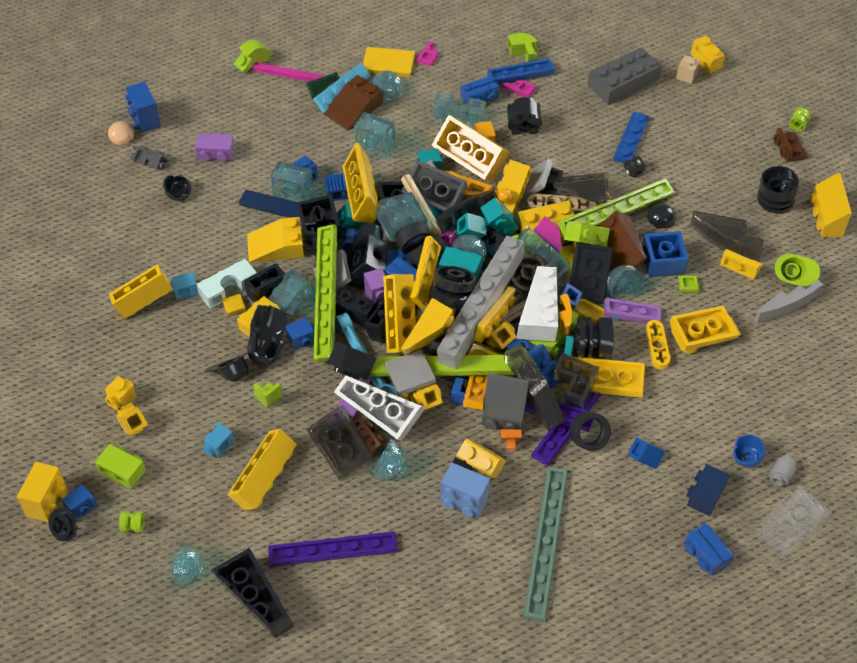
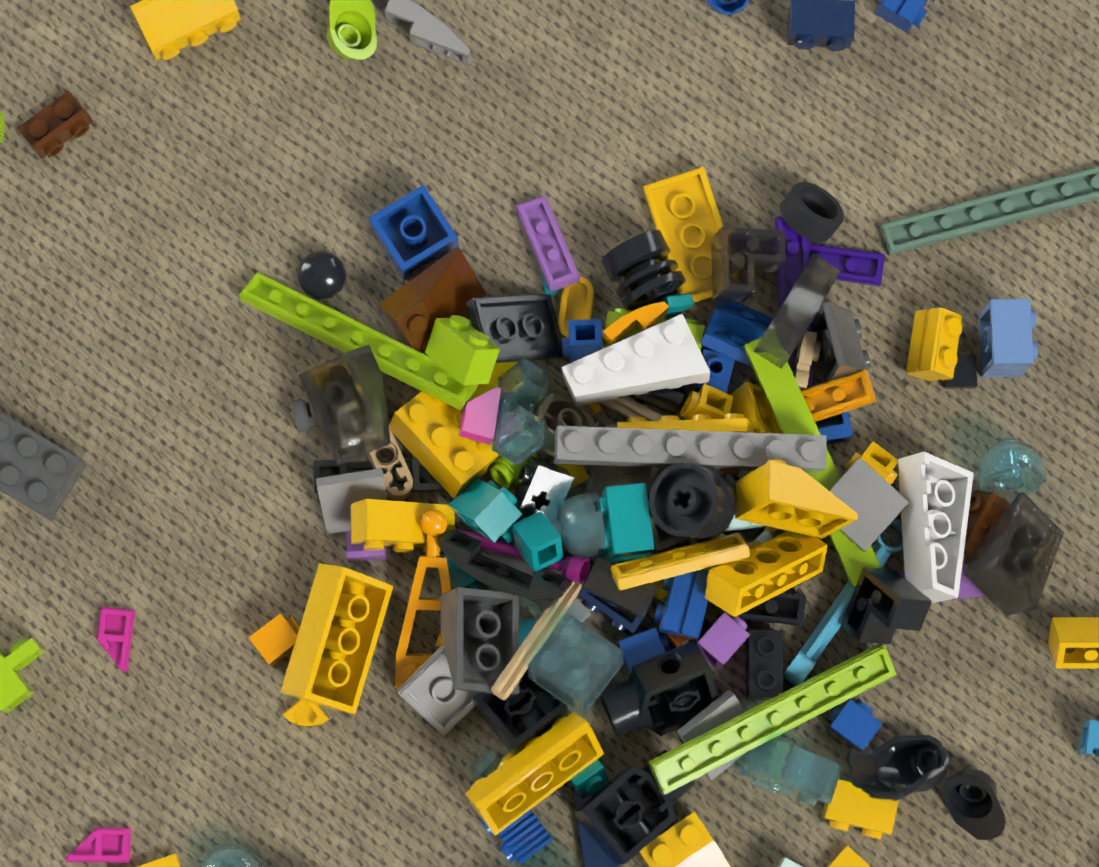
camera: 120 degrees left, 25 degrees up
(264, 282) = (795, 831): black brick -> none
(268, 393) = (985, 714): lime panel -> none
(349, 238) = (623, 752): blue wheel -> none
(375, 135) = (382, 823): clear light blue brick -> none
(412, 236) = (605, 621): black tyre -> none
(431, 154) = (385, 704): teal brick -> none
(470, 113) = (239, 745): clear light blue arch -> none
(482, 89) = (169, 698): blue brick -> none
(510, 437) = (873, 322): orange tile -> none
(522, 71) = (77, 651): blue plate -> none
(524, 116) = (207, 585): black brick -> none
(625, 279) = (502, 273): clear light blue cylinder -> none
(631, 137) = (156, 391): blue plate -> none
(634, 166) = (230, 356): pearl dark grey wheel -> none
(646, 453) = (797, 128): blue panel -> none
(661, 338) = (592, 172): yellow beam -> none
(688, 284) = (445, 183): lime tile -> none
(703, 328) = (534, 123): yellow slope -> none
(727, 234) = (318, 154): clear smoke slope -> none
(740, 264) = (362, 117): yellow panel -> none
(777, 189) = (187, 86): black wheel -> none

